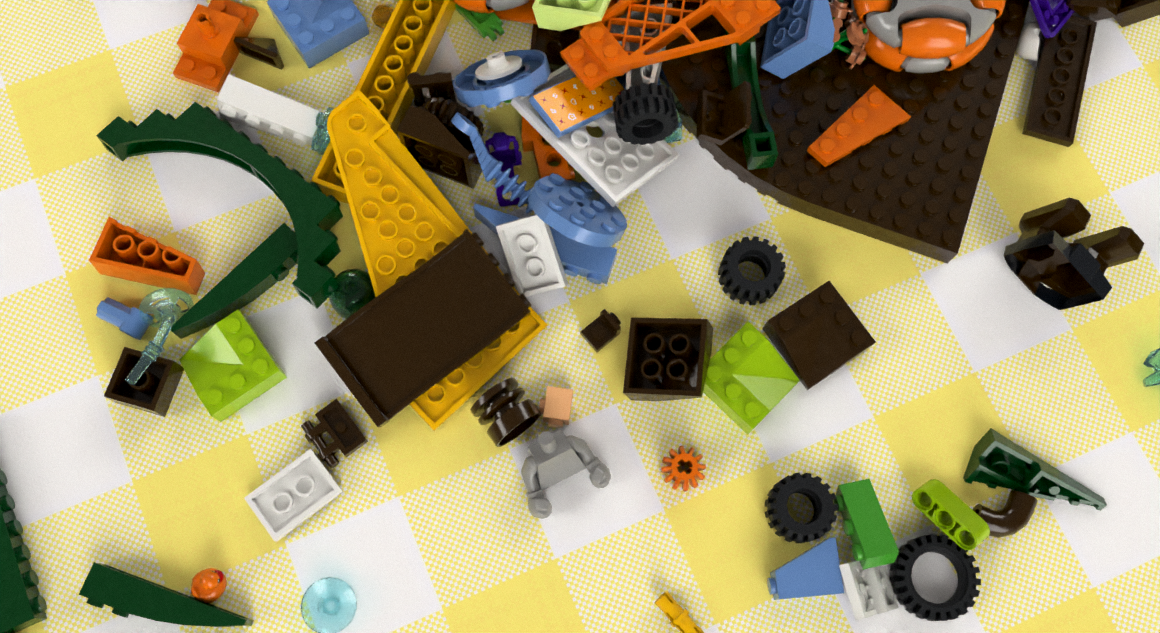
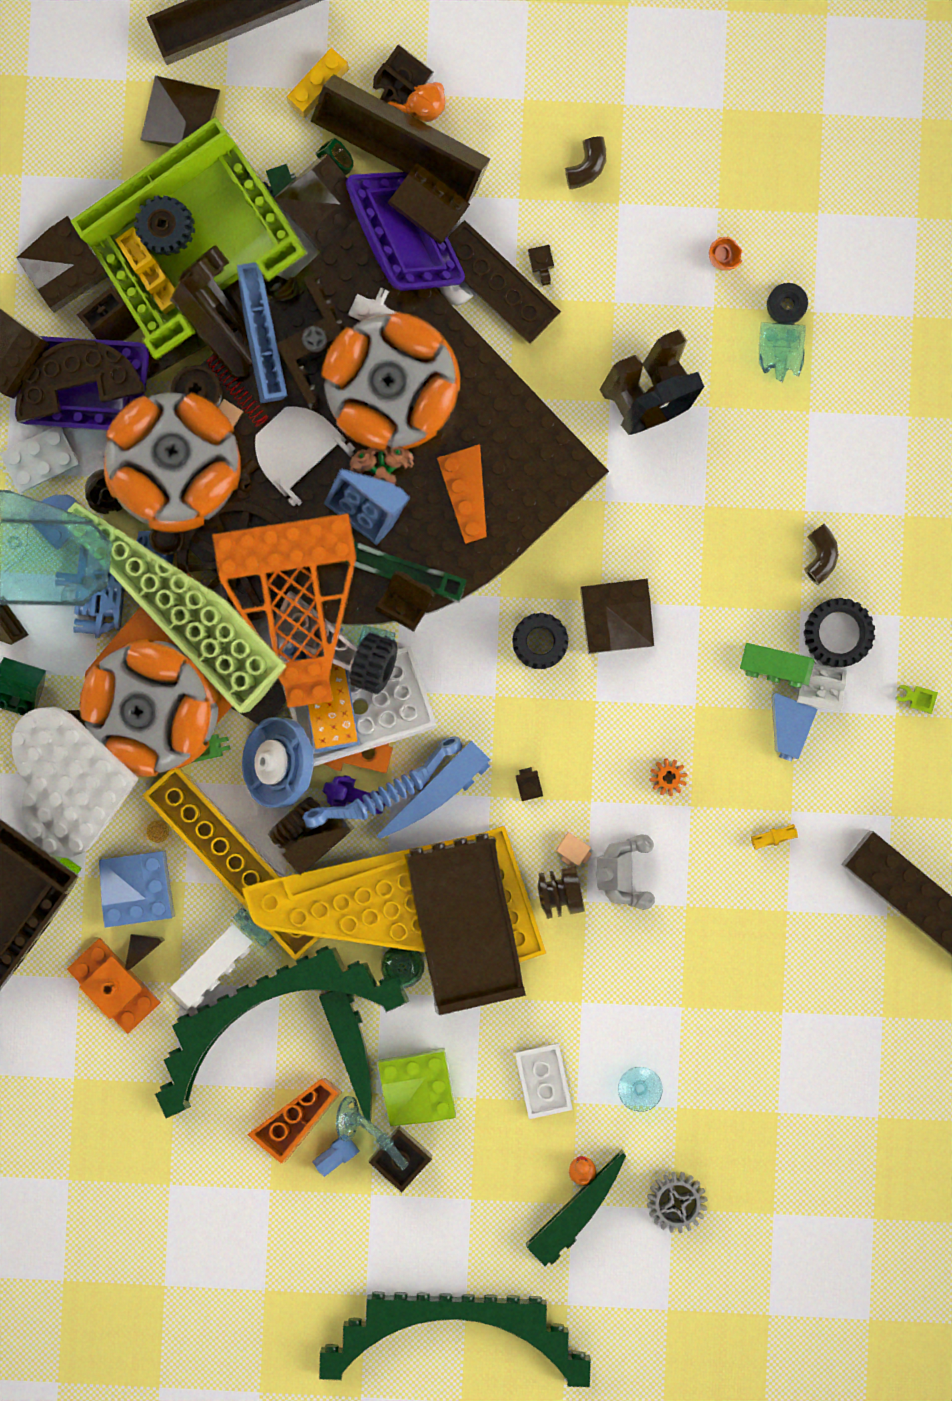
camera: 60 degrees left, 15 degrees up
(340, 427) = (510, 1023): dark brown plate -> none
(439, 85) = (259, 818): dark brown plate -> none
(532, 255) = (445, 812): white plate -> none
(577, 211) = (430, 760): medium blue piece -> none
(667, 358) = (581, 748): dark brown slope -> none
(748, 378) = (623, 690): lime slope -> none
(820, 499) = (760, 699): black tyre -> none
(951, 514) = (801, 596): lime beam -> none
(1007, 465) = (787, 525): dark green wedge -> none
(1102, 108) = (541, 261): none -> dark brown plate

